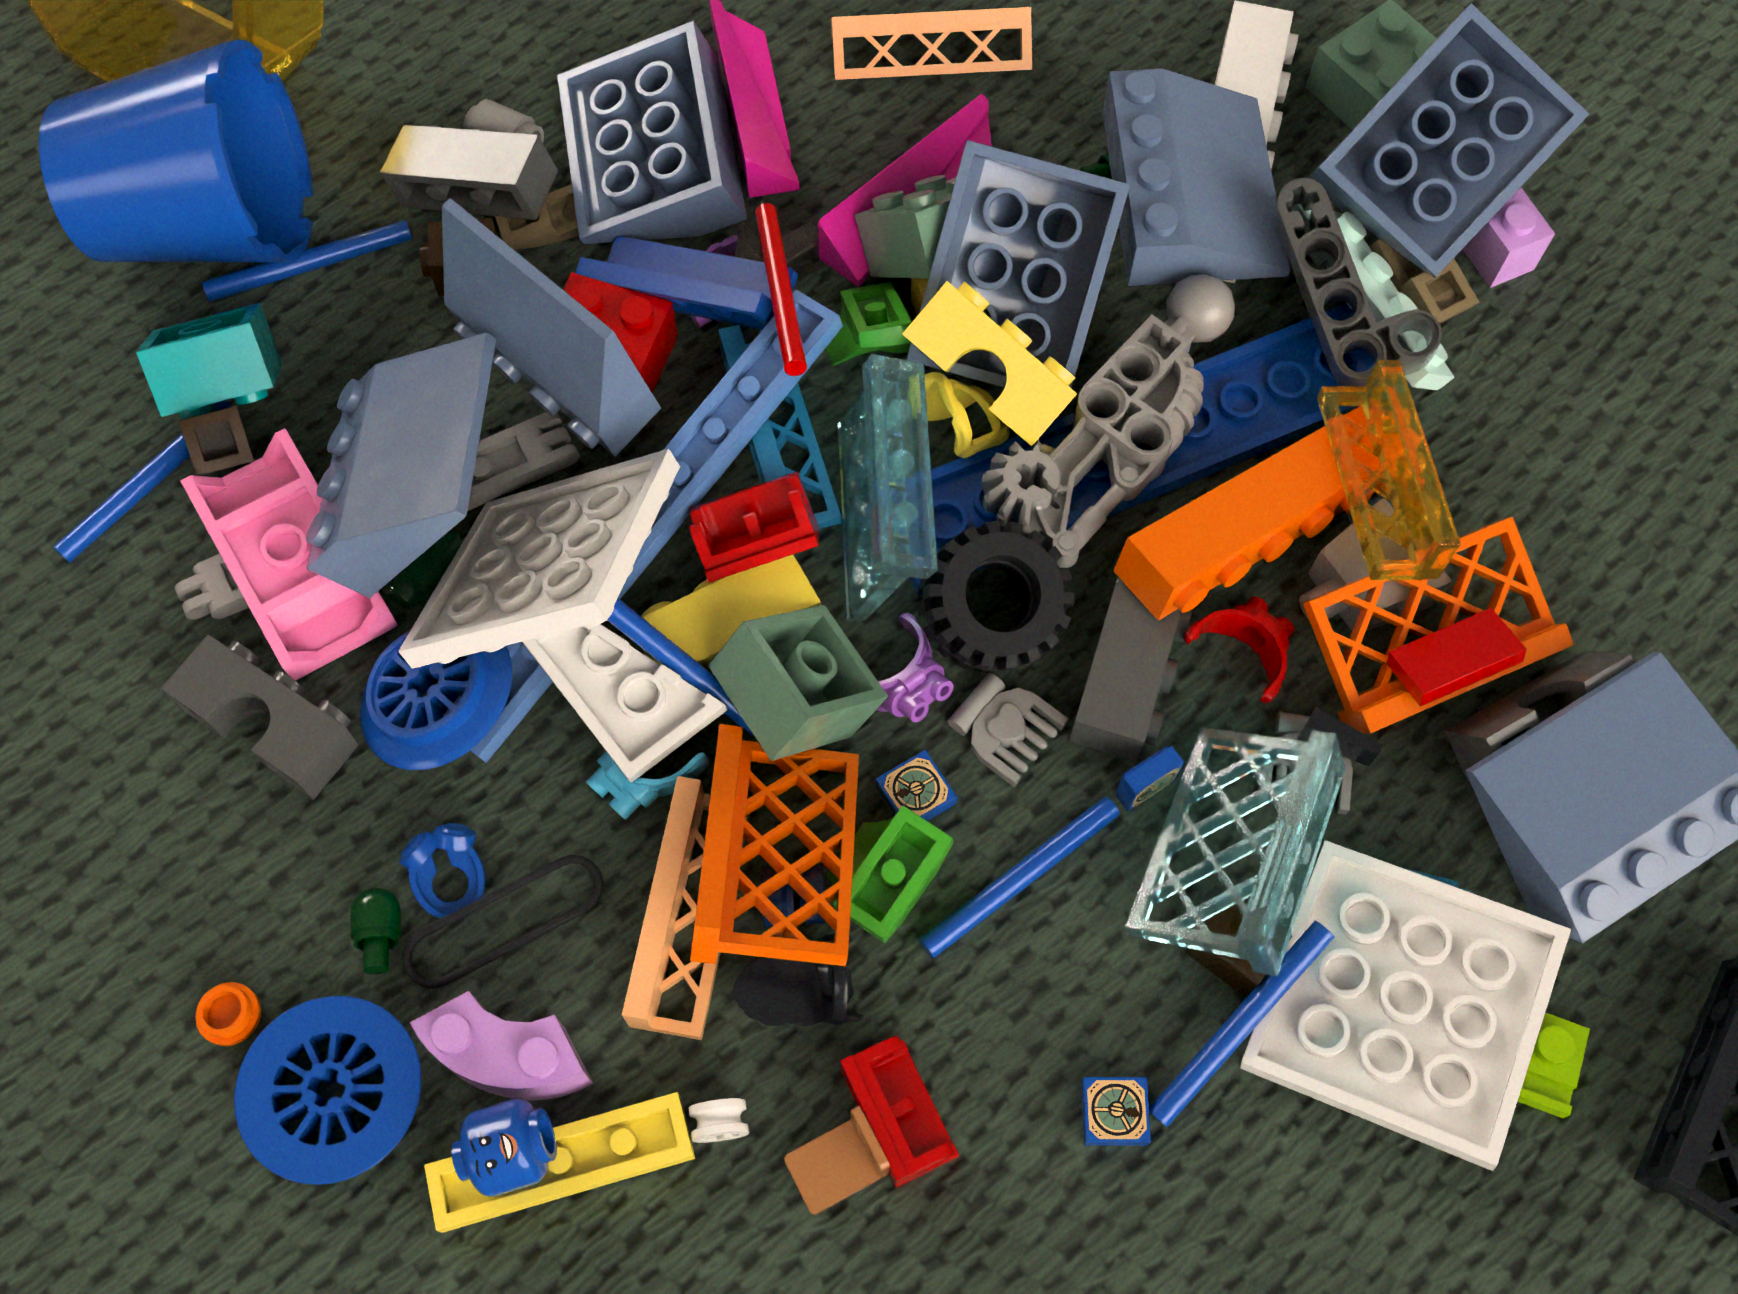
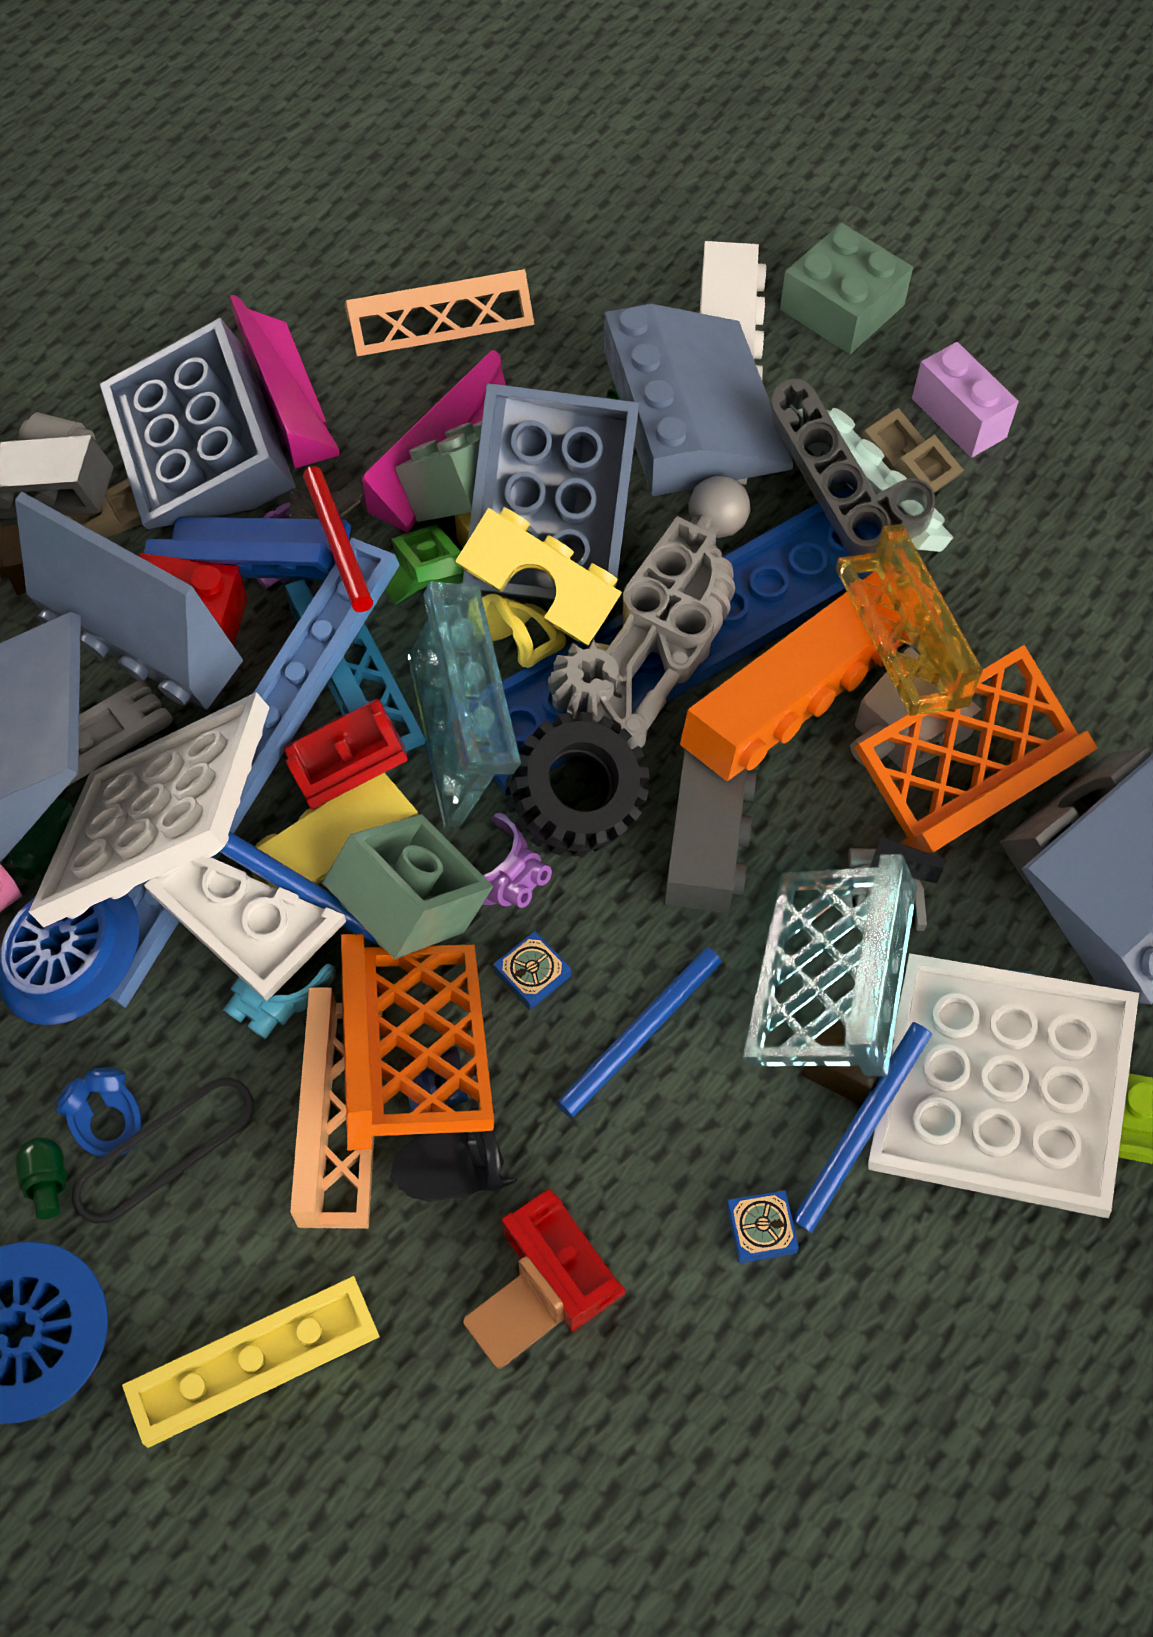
camera: 10 degrees left, 5 degrees down
(500, 1055) = (182, 1271): lavender brick -> none
(504, 1147) = (197, 1351): blue head -> none
(718, 1120) = (396, 1296): white bush -> none
(892, 870) = (523, 1042): bright green slope -> none
(1000, 724) = (599, 898): light grey piece -> none
(1149, 777) = (742, 923): blue tile -> none
(1259, 630) = (813, 778): red helmet -> none
(1449, 143) = (913, 335): sand blue slope -> none
(1456, 656) = (996, 773): red tile -> none

